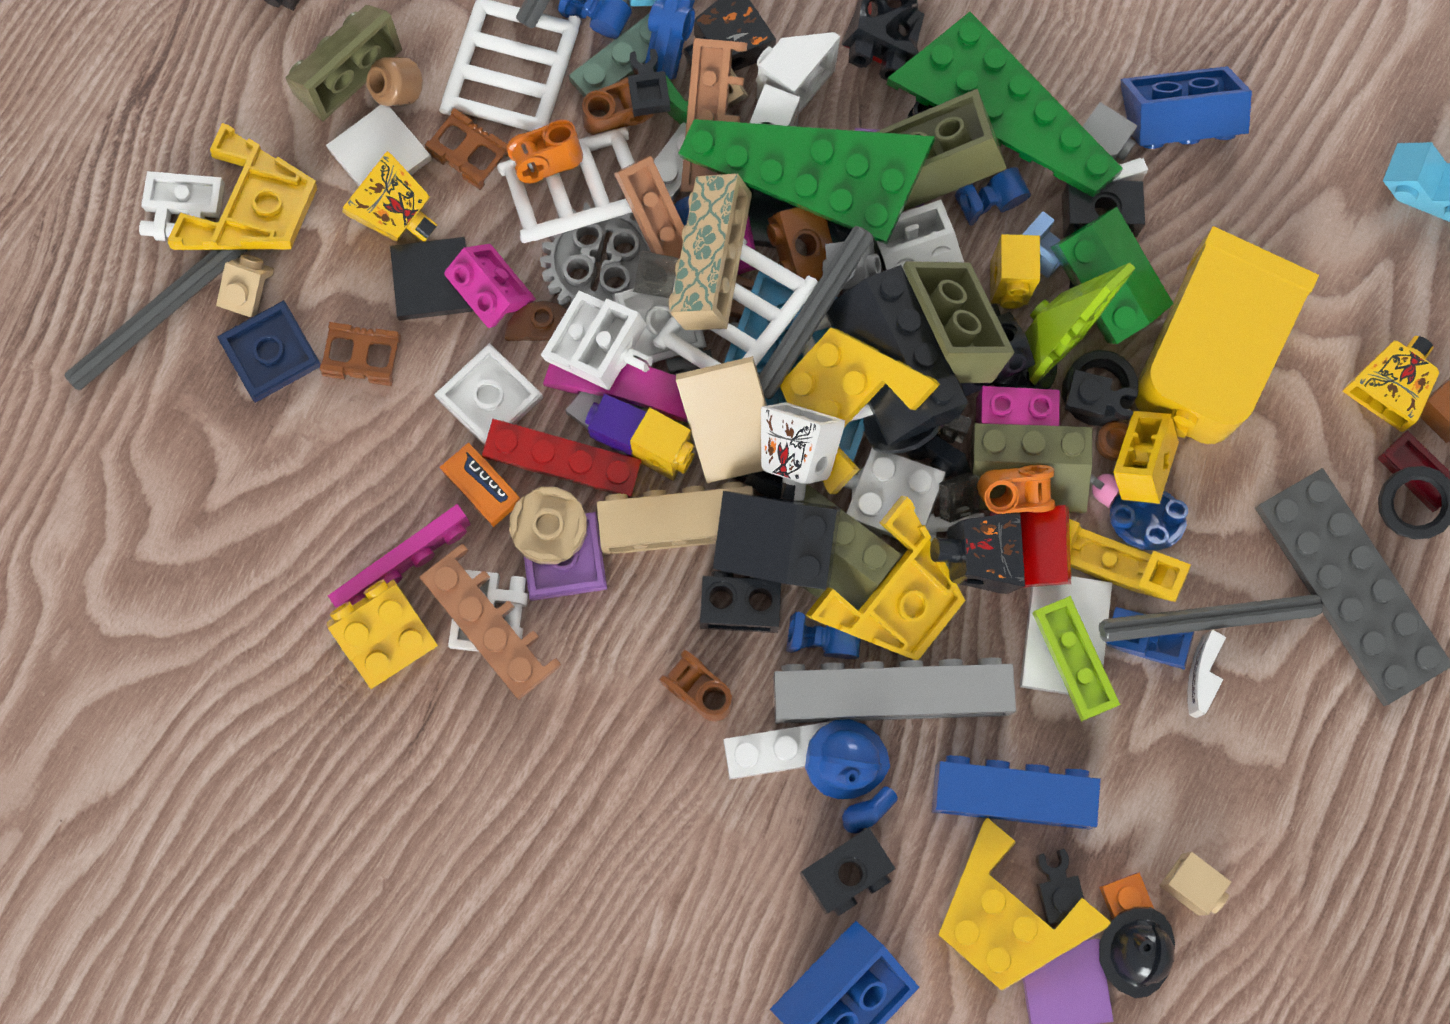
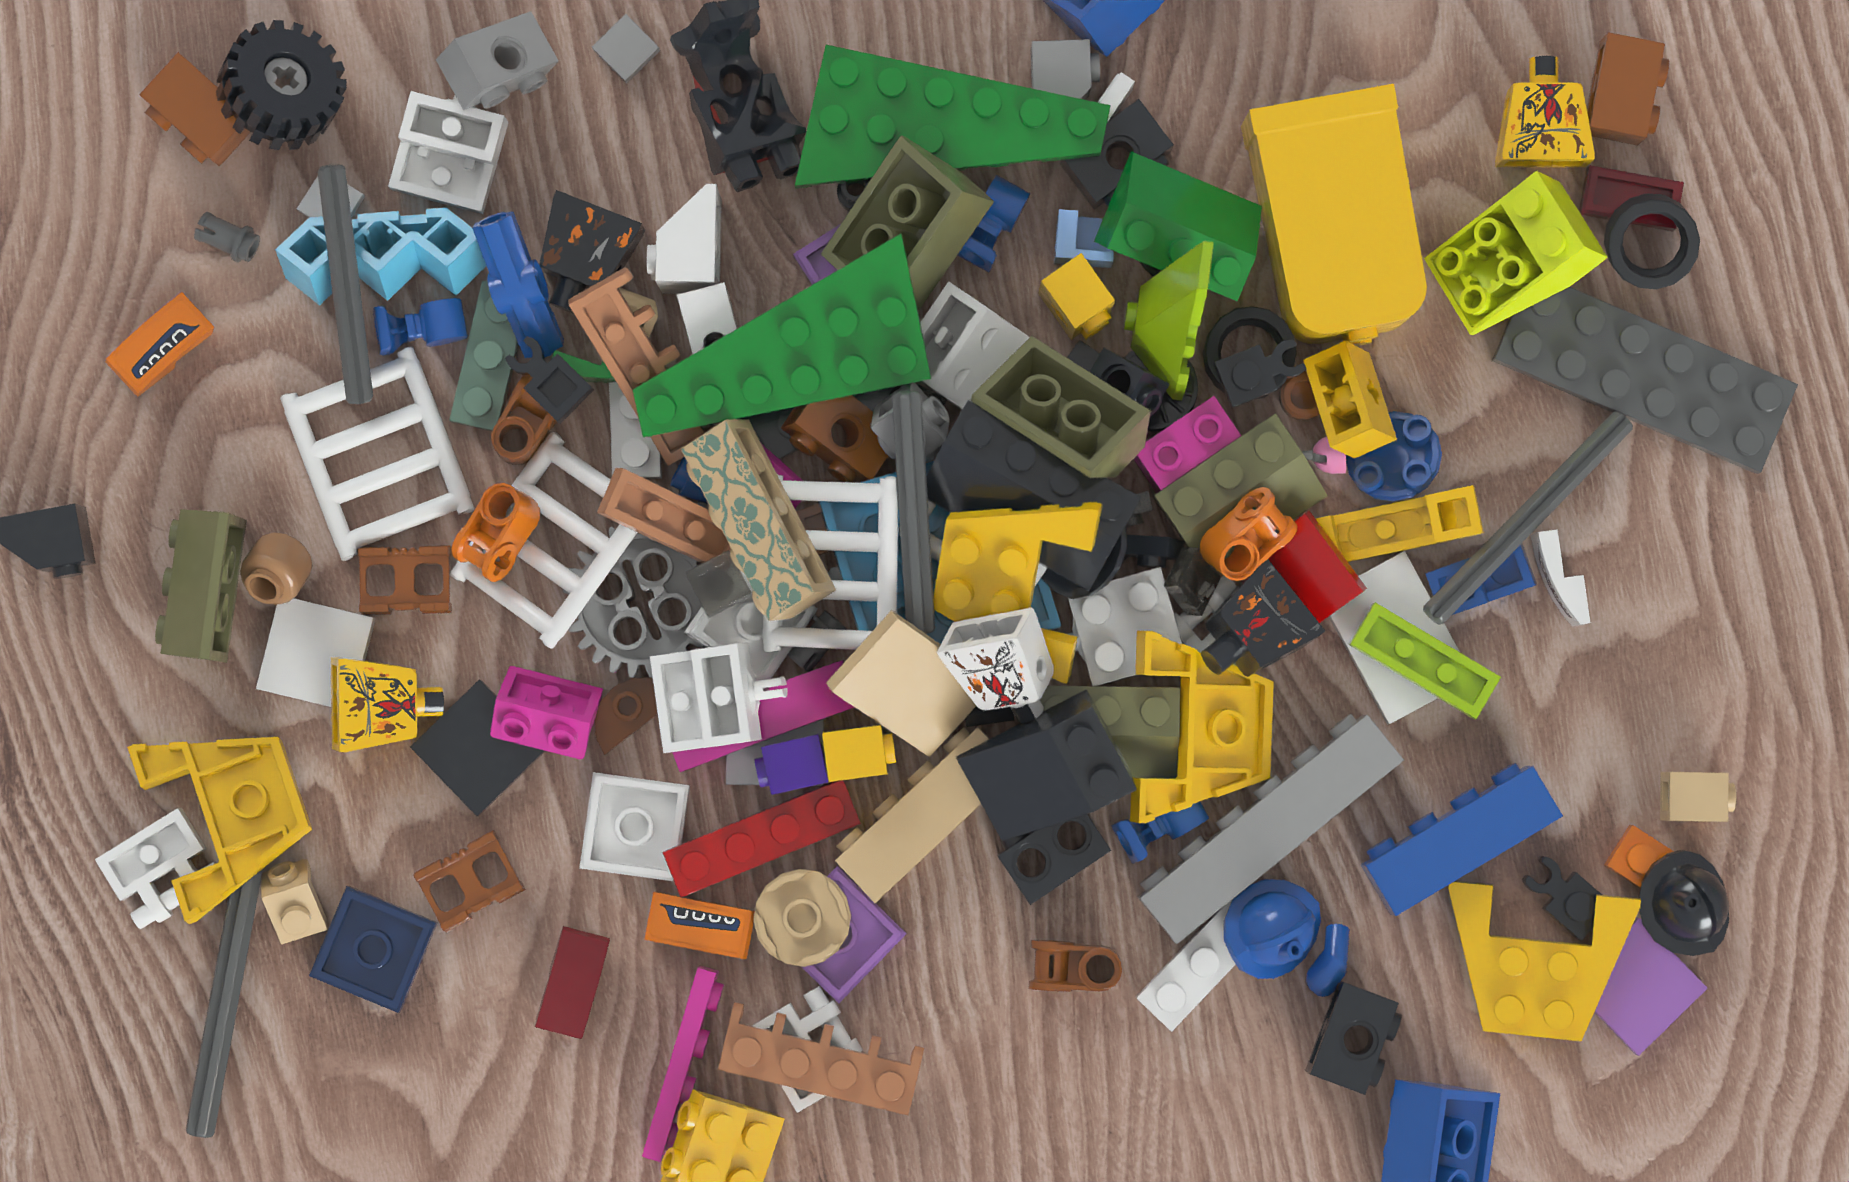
camera: 35 degrees left, 10 degrees up
(373, 459) = (572, 982): none -> dark red slope
(1321, 446) = (1515, 254): none -> neon yellow slope

